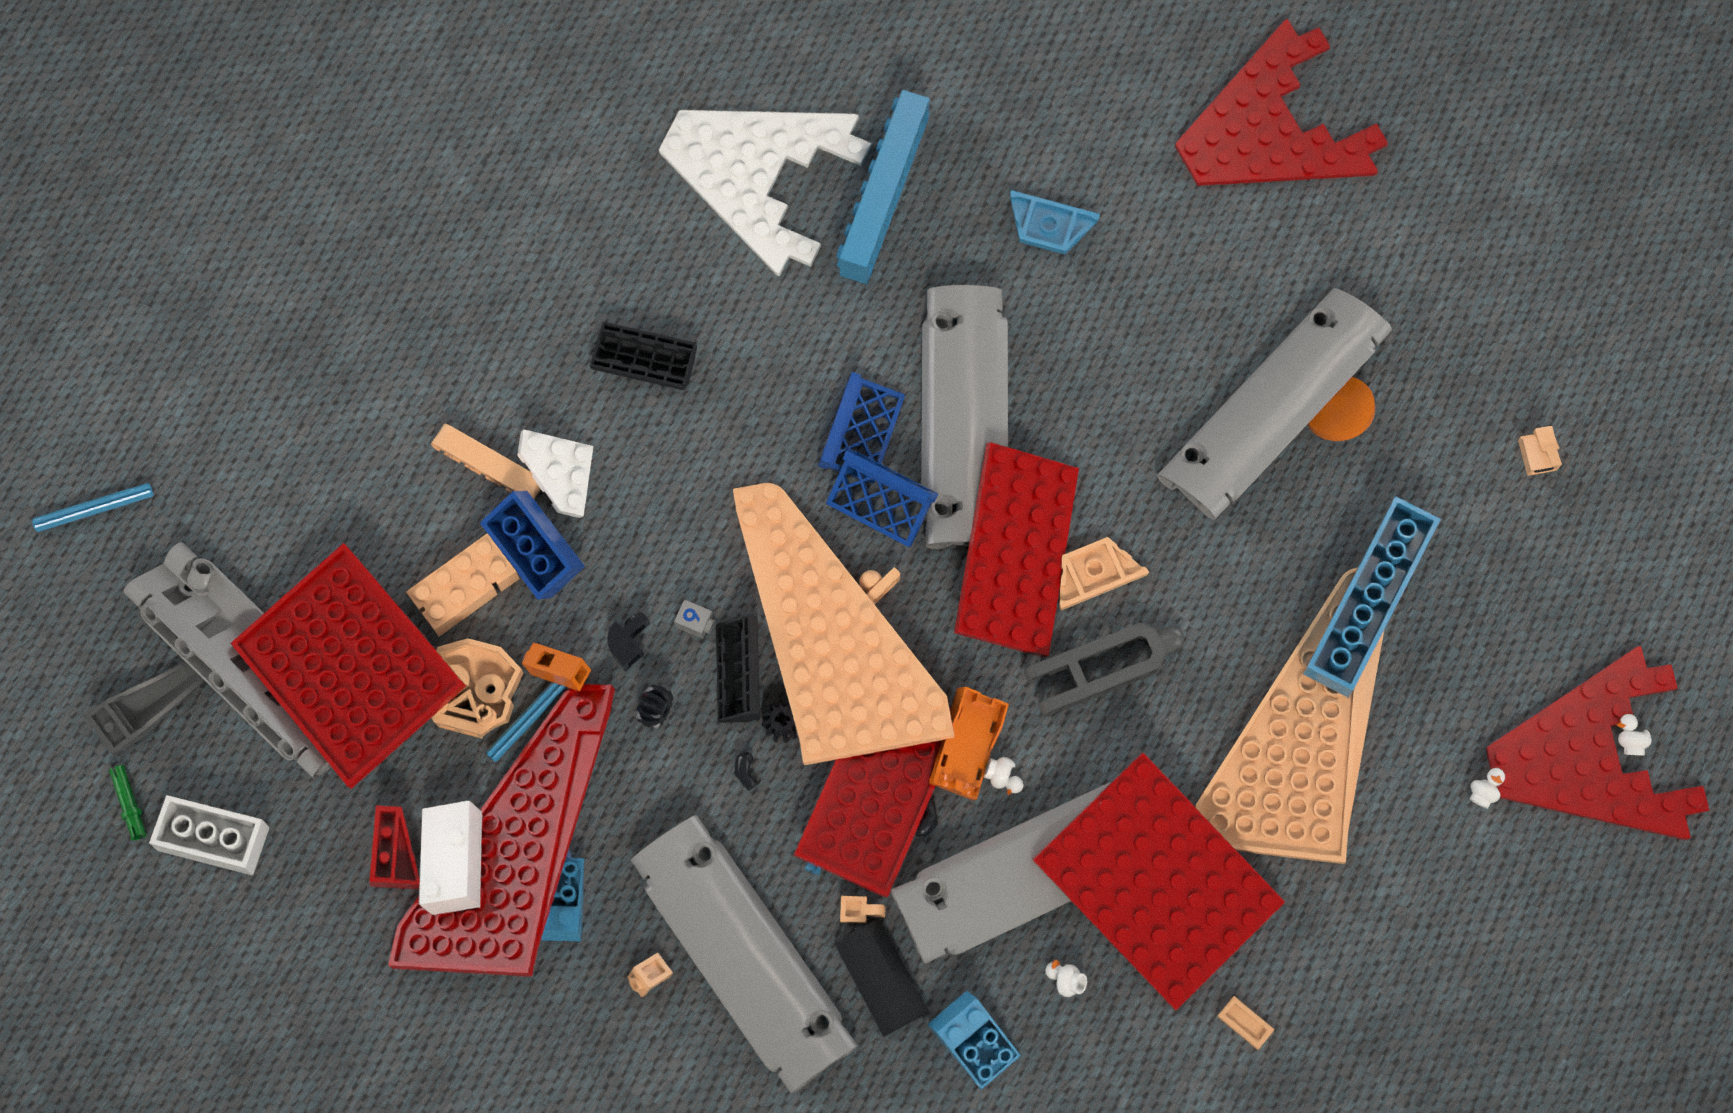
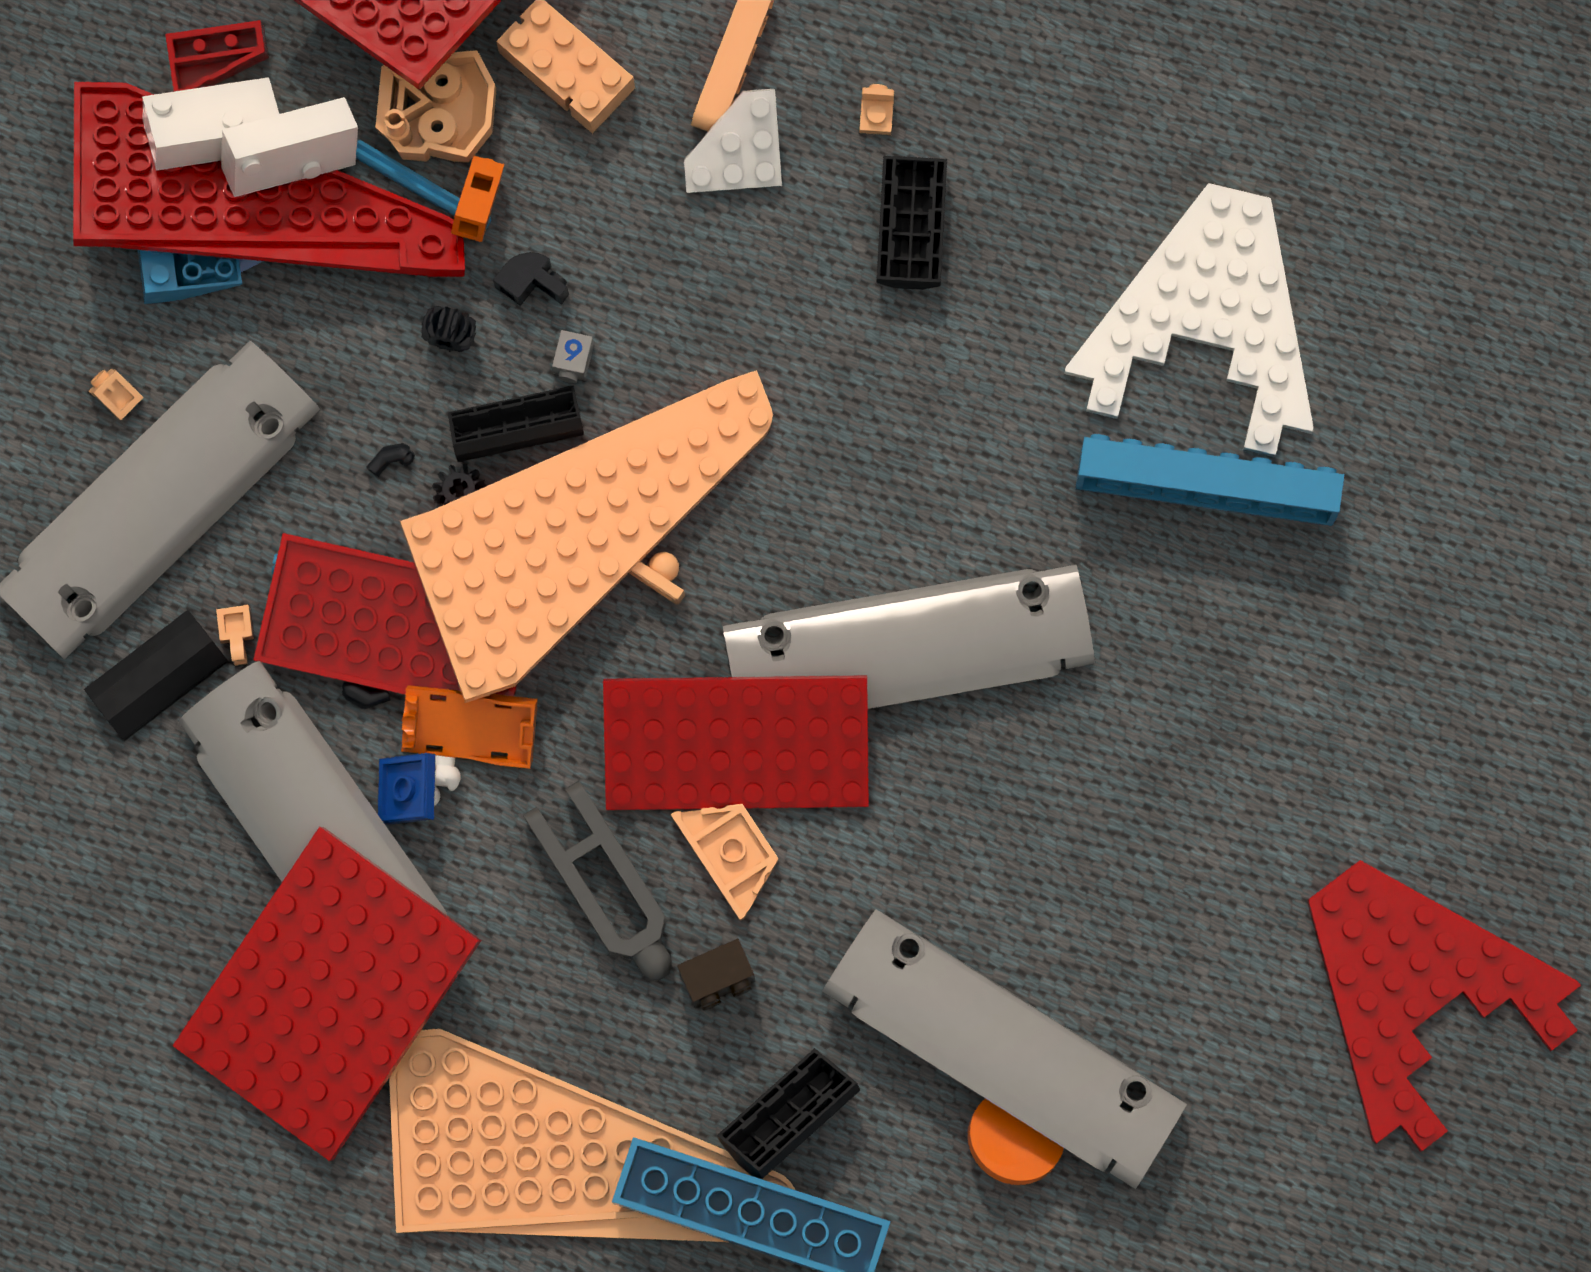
camera: 80 degrees right, 5 degrees up
(485, 798) = (289, 147): none -> white brick
(532, 544) = (630, 135): blue brick -> none
(550, 368) = (876, 110): none -> light nougat bracket
(844, 416) = (870, 489): blue fence -> none
(894, 481) = (796, 569): blue fence -> none
(974, 1039) = (96, 799): dark azure slope -> none
(1008, 797) = (406, 788): none -> blue tile
(1049, 223) = (1207, 710): dark azure wing -> none
(1068, 978) = (189, 903): white animal -> none
(1189, 592) = (717, 974): none -> dark brown brick
(1245, 1023) = (172, 1137): light nougat tile -> none
(1302, 560) = (787, 1114): none -> black piece

